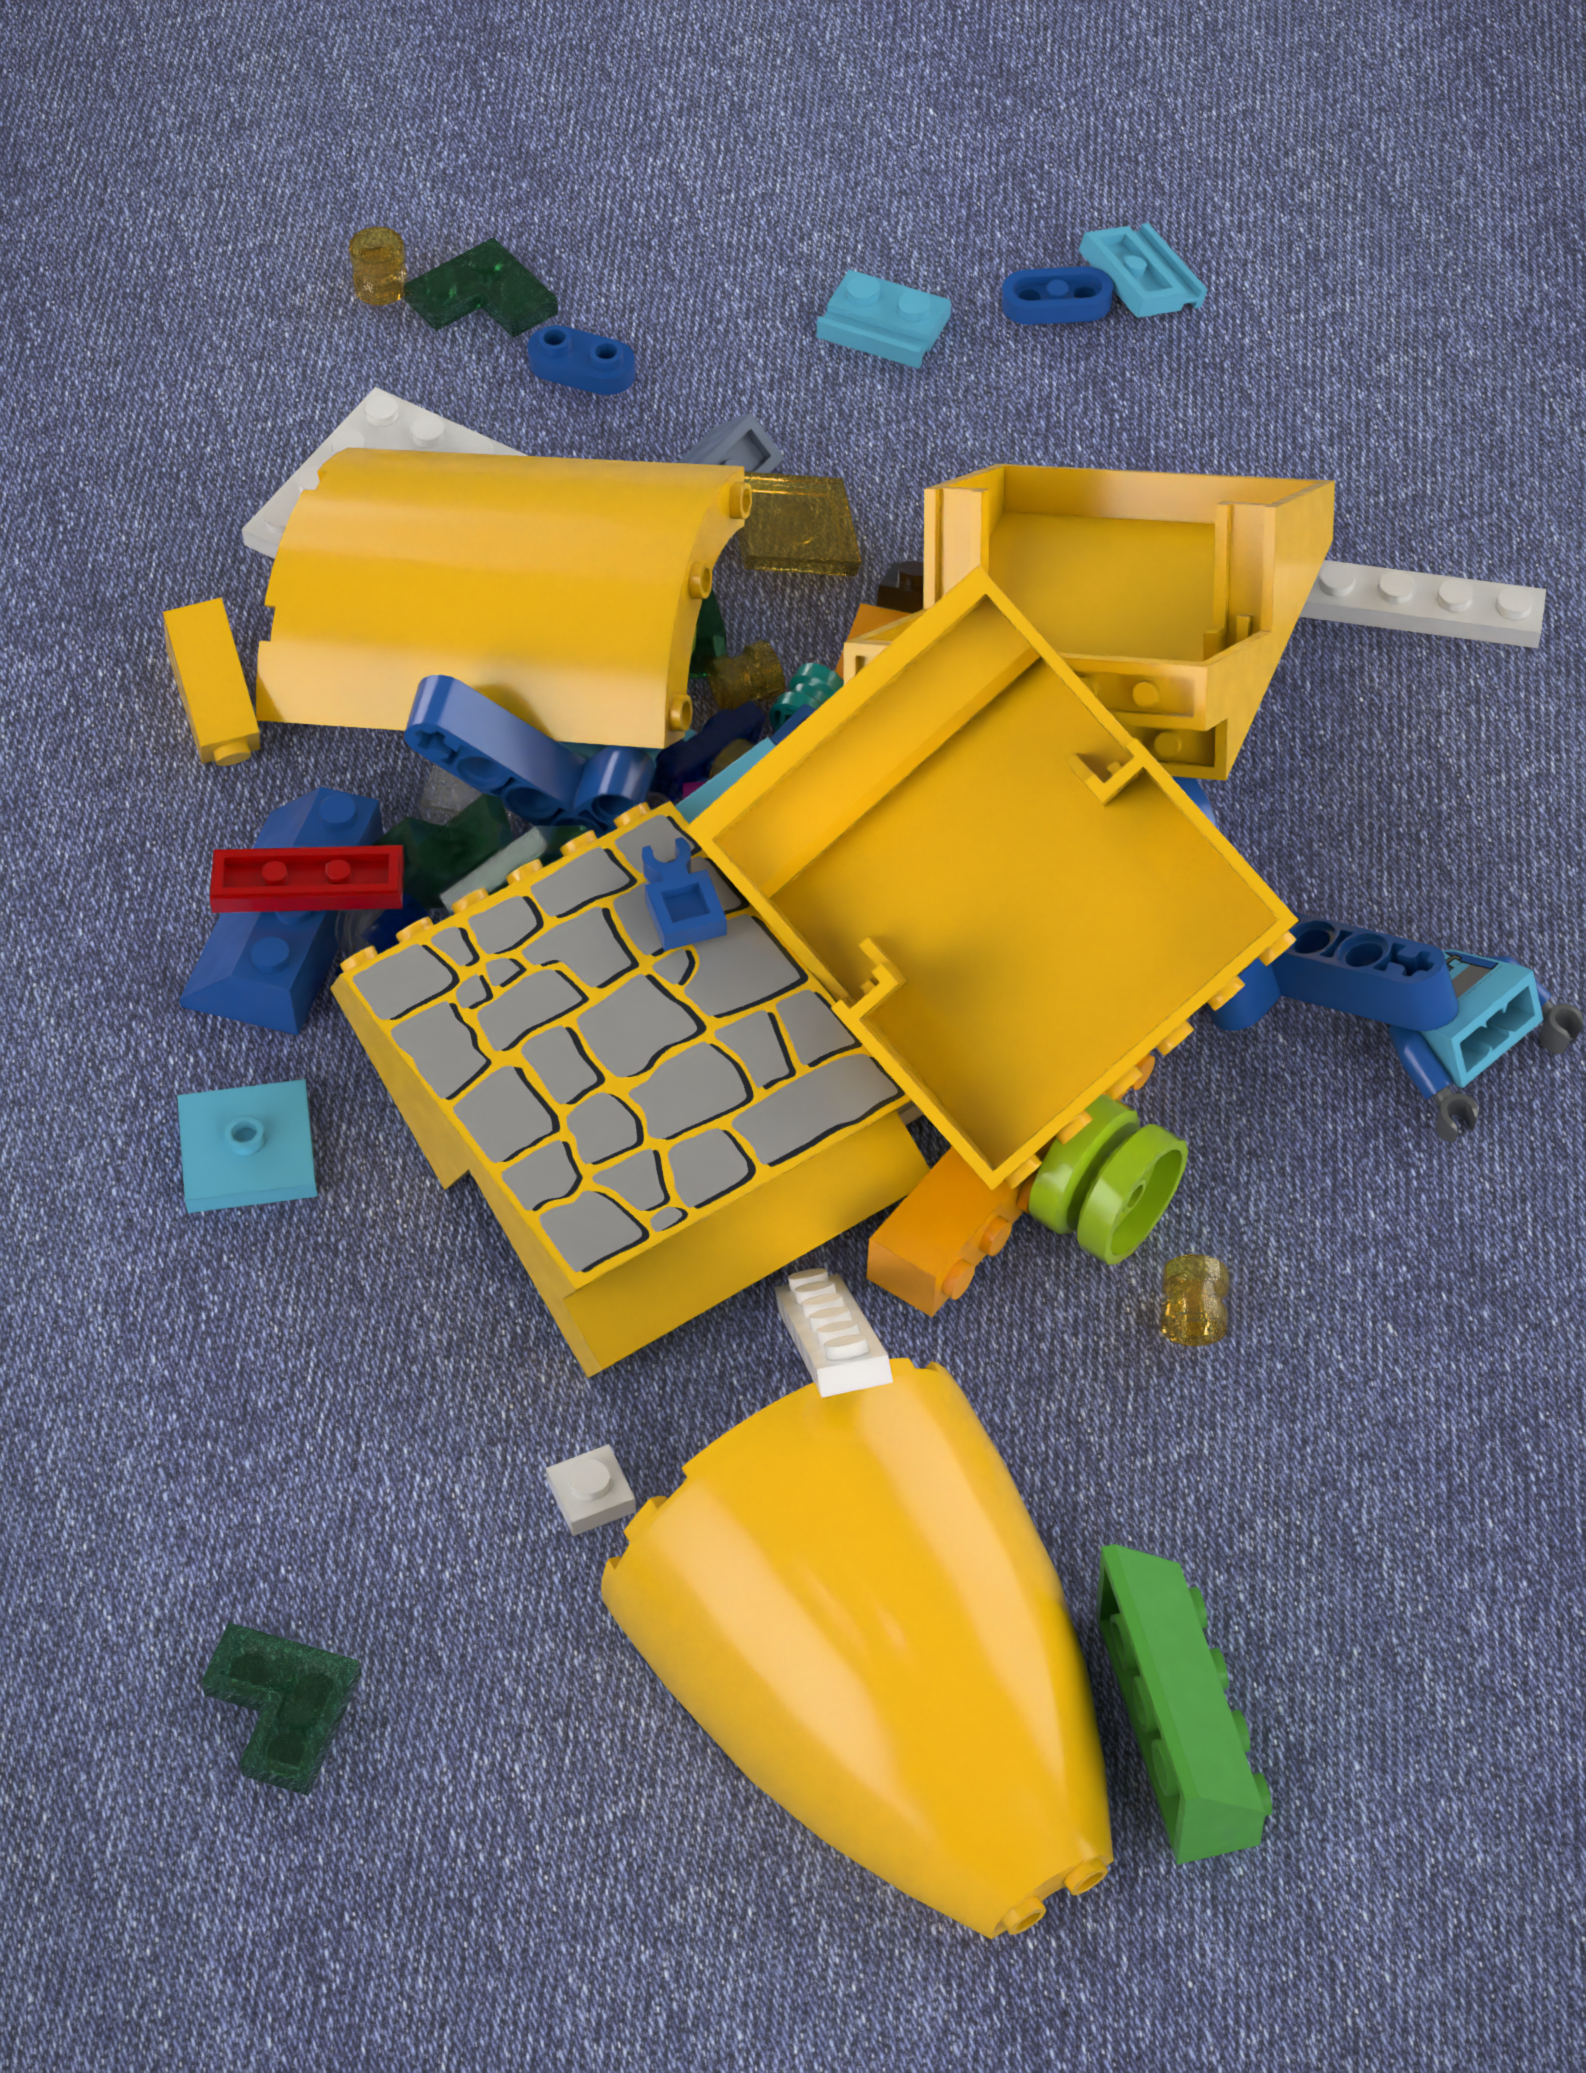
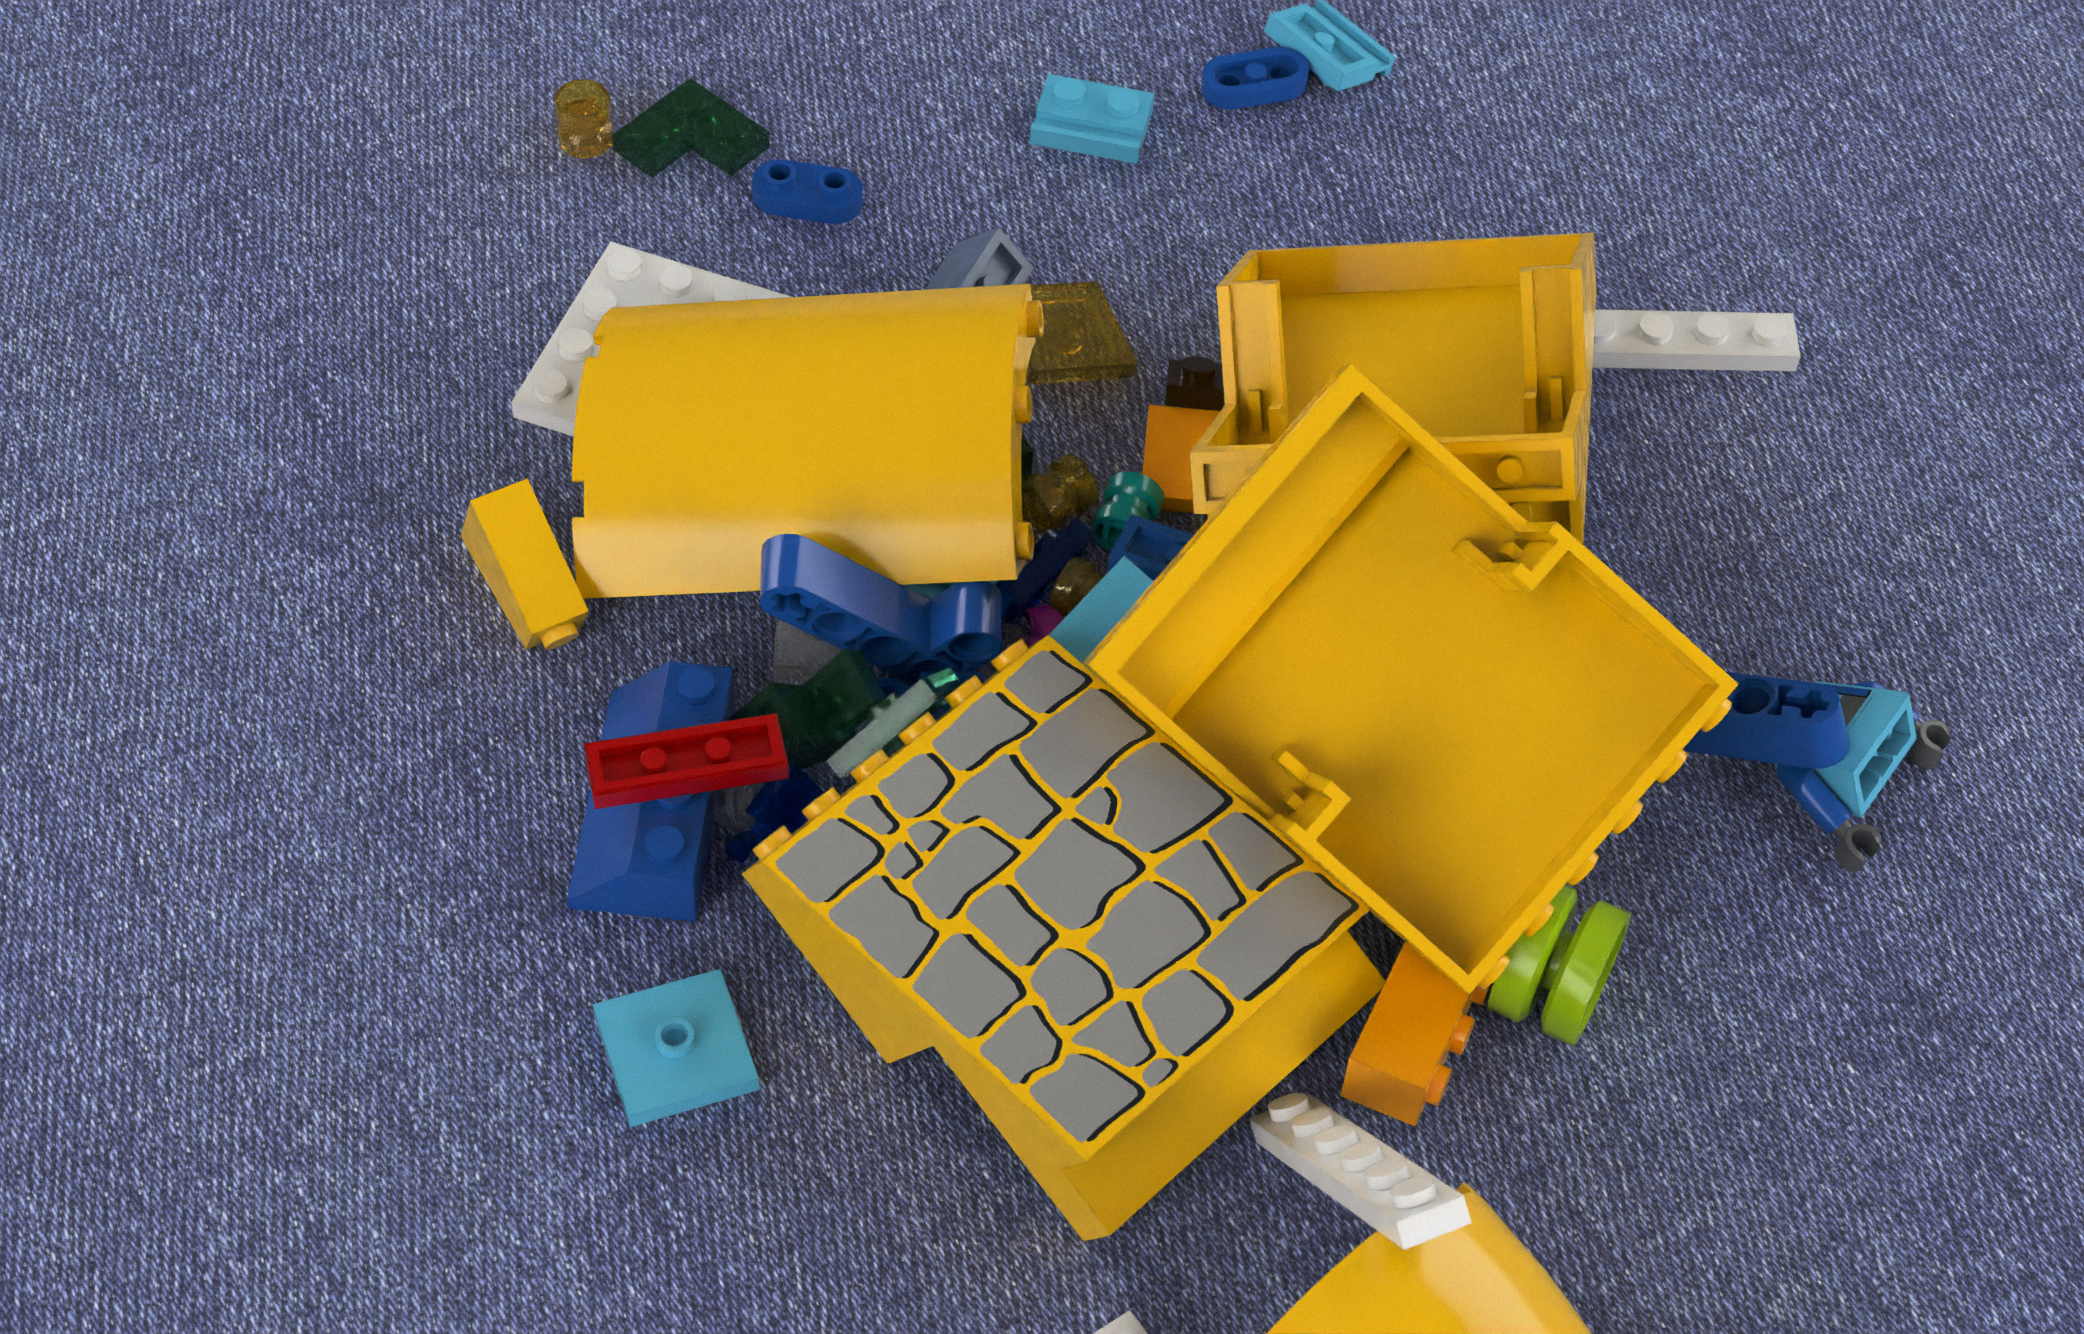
camera: 15 degrees left, 0 degrees up
(681, 901) = (1092, 740): blue plate -> none
(1195, 1298) = (1666, 1071): clear yellow wheel -> none

